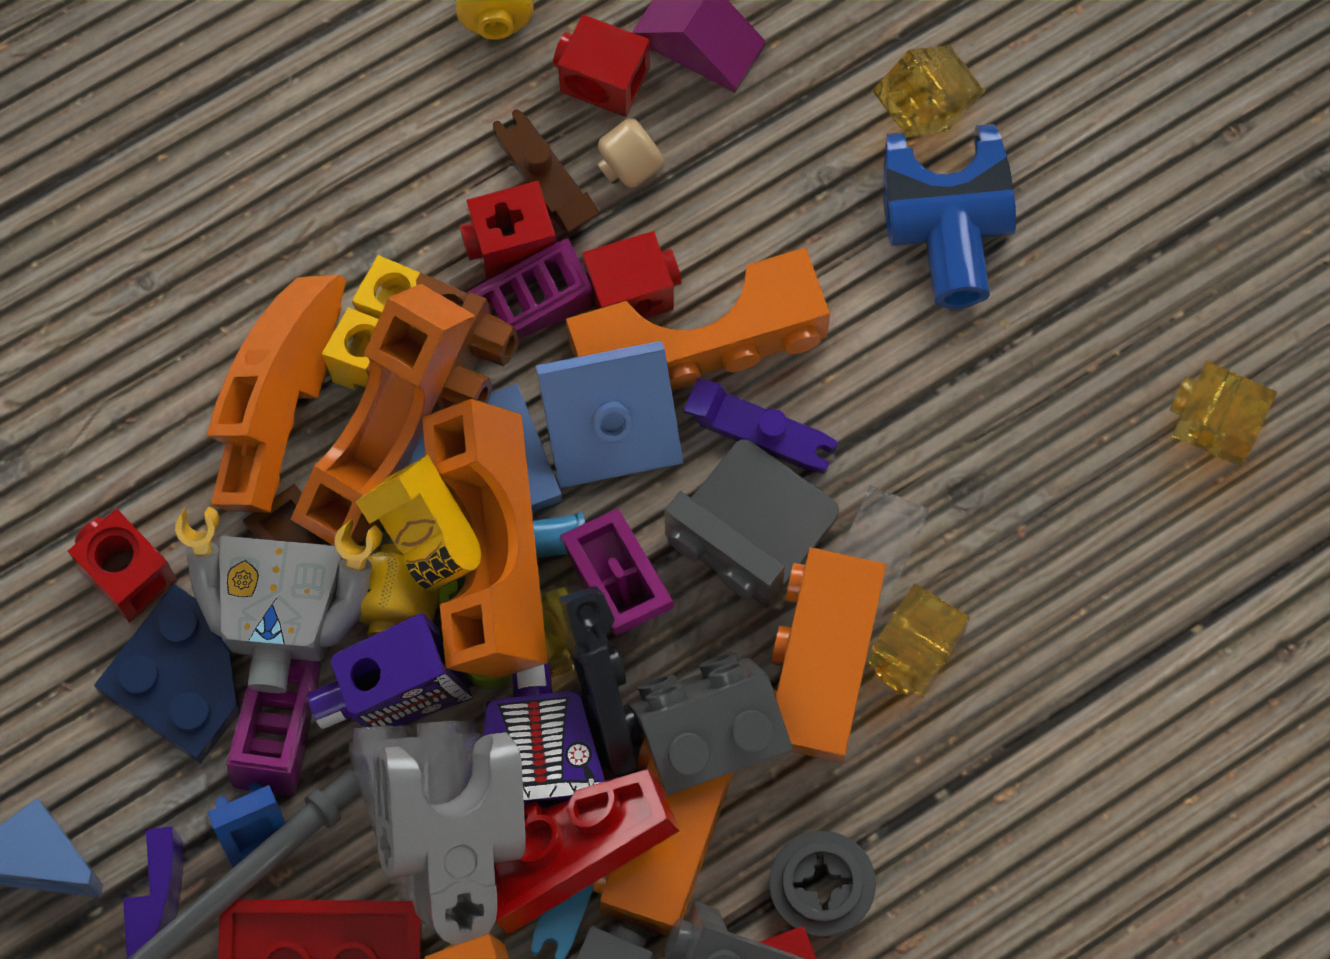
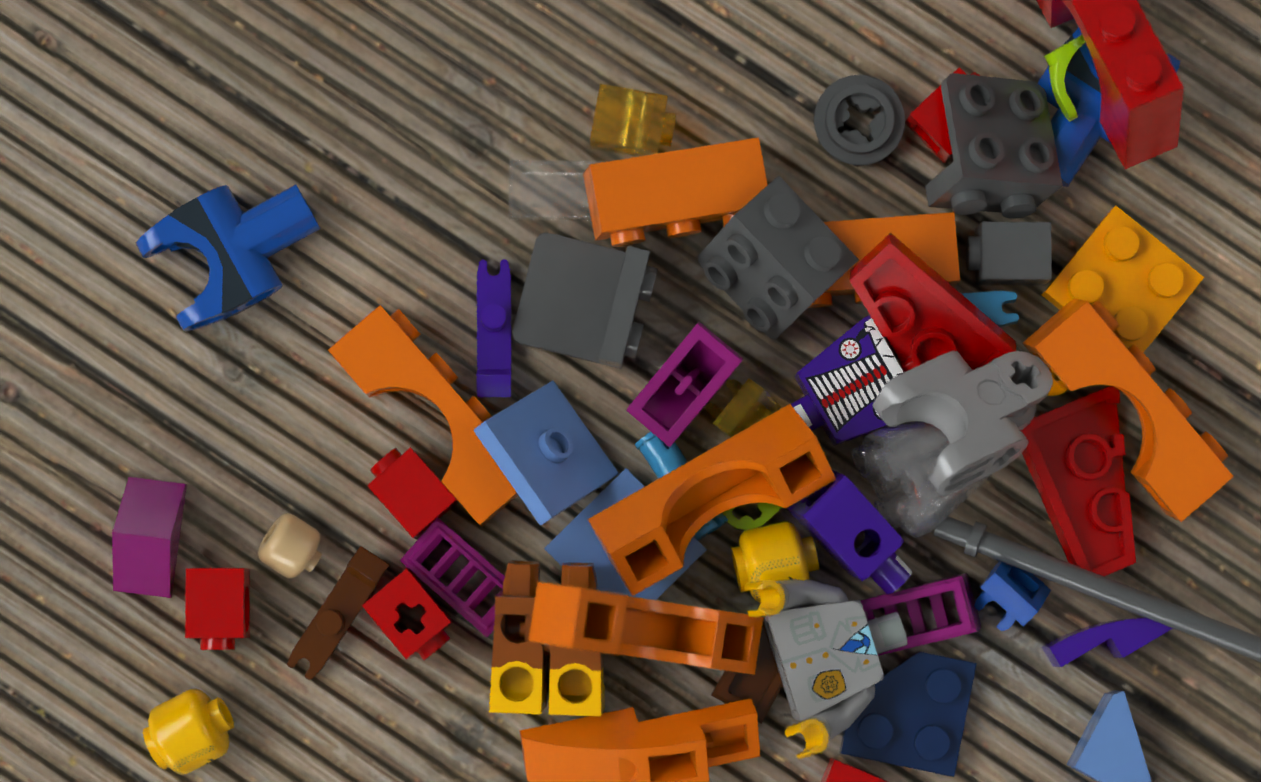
camera: 120 degrees left, 15 degrees up
(424, 524) = (722, 554): yellow leg -> none
(598, 675) = (784, 357): black hinge -> none
(928, 90) = (130, 307): clear yellow brick -> none

